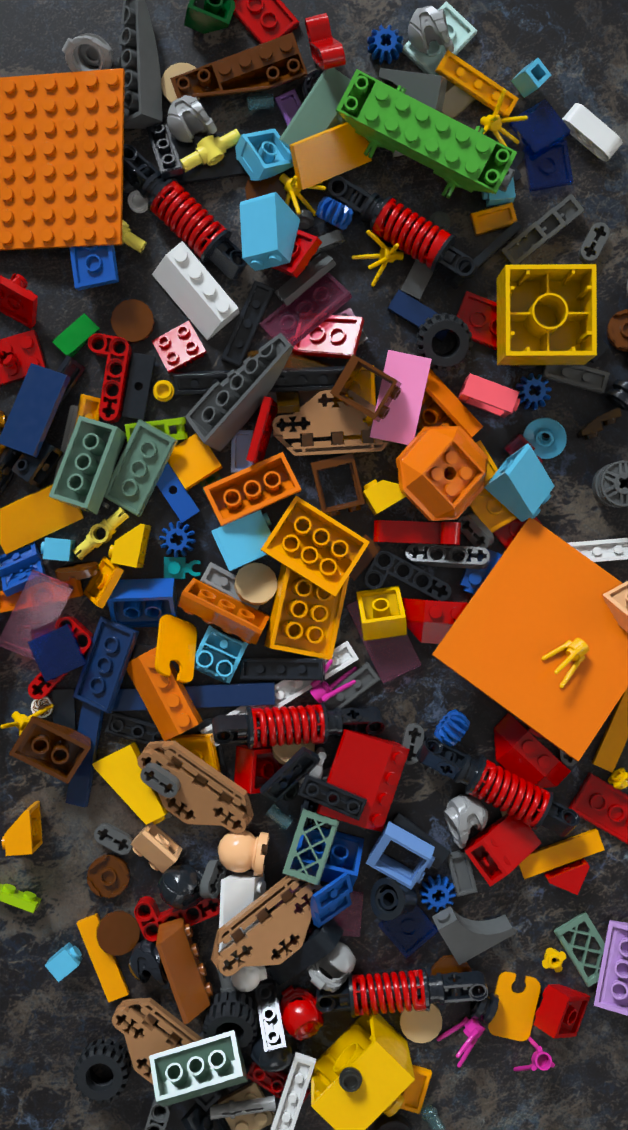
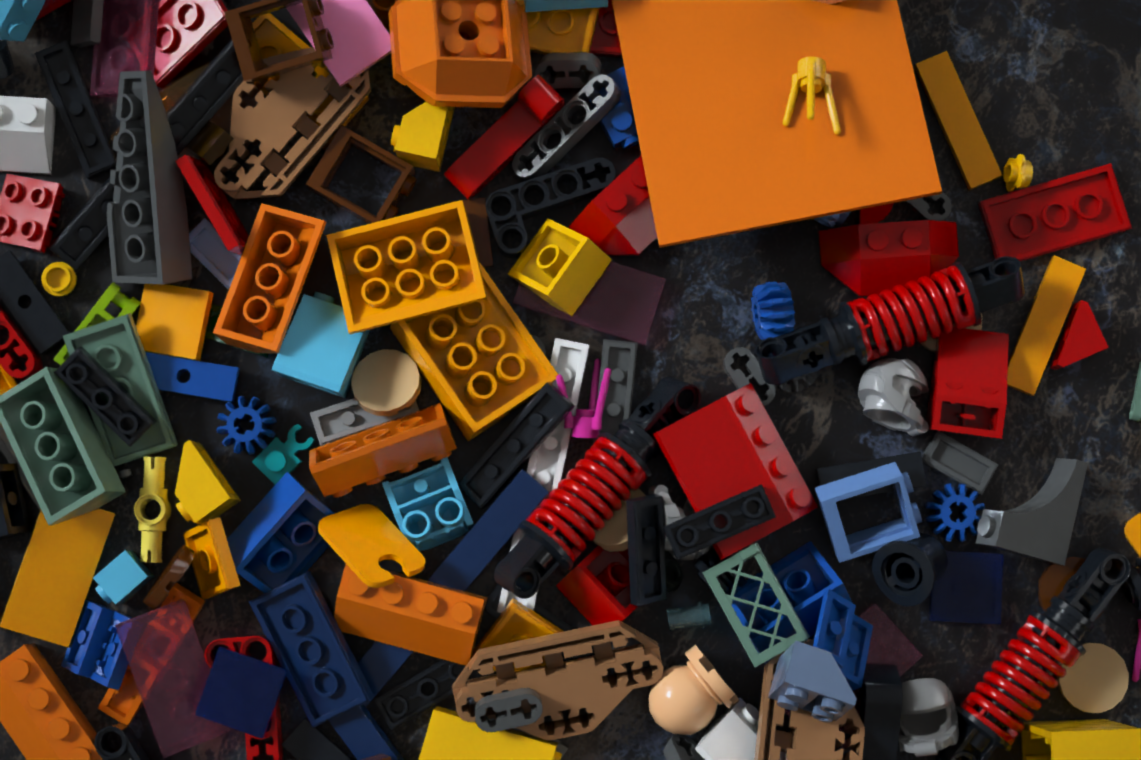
camera: 45 degrees left, 5 degrees down
(130, 451) = (121, 412): none -> black tile
(299, 908) = (811, 681): none -> sand blue slope

